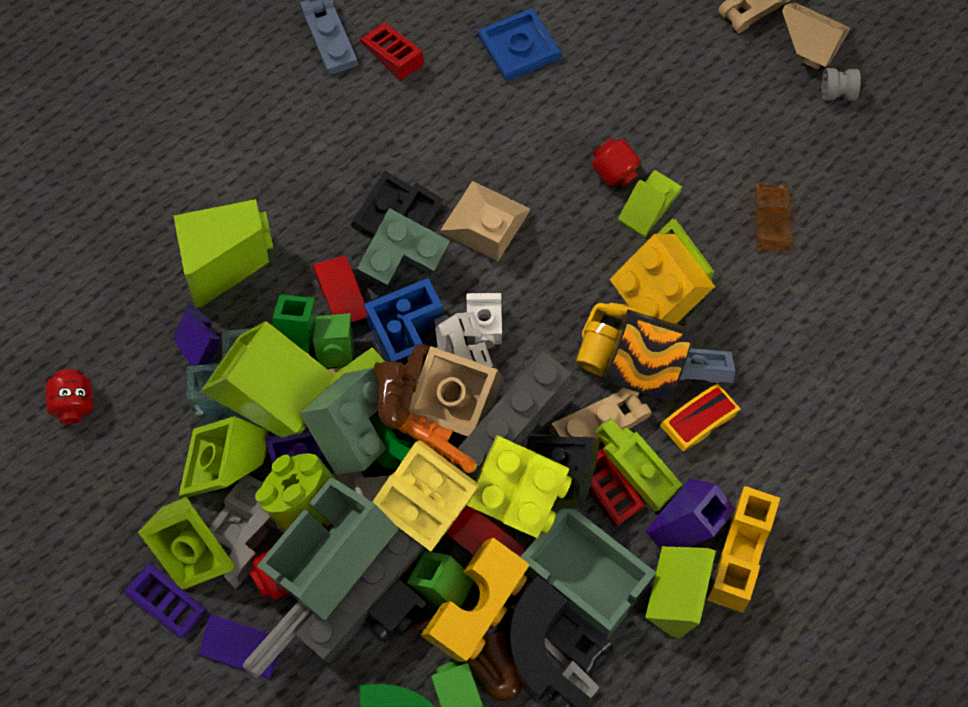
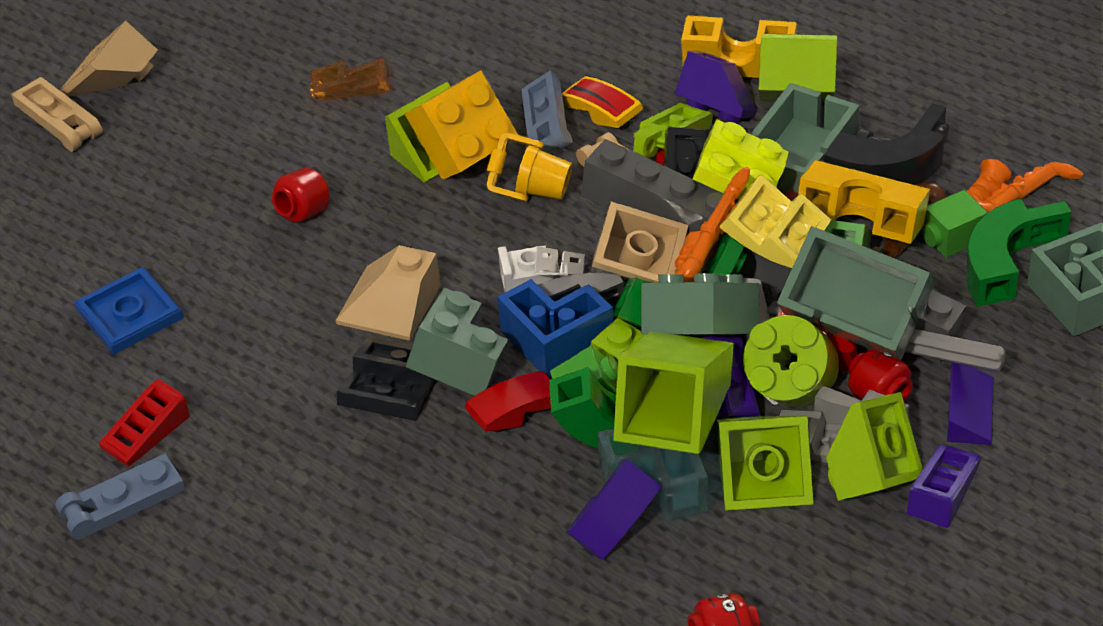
camera: 95 degrees left, 20 degrees down
(222, 247) = (493, 505): lime slope -> none
(398, 386) = (653, 261): reddish brown piece -> none
(648, 203) = (350, 167): lime slope -> none
(648, 355) = (550, 116): slope -> none
(837, 84) = (176, 42): light grey wheel -> none

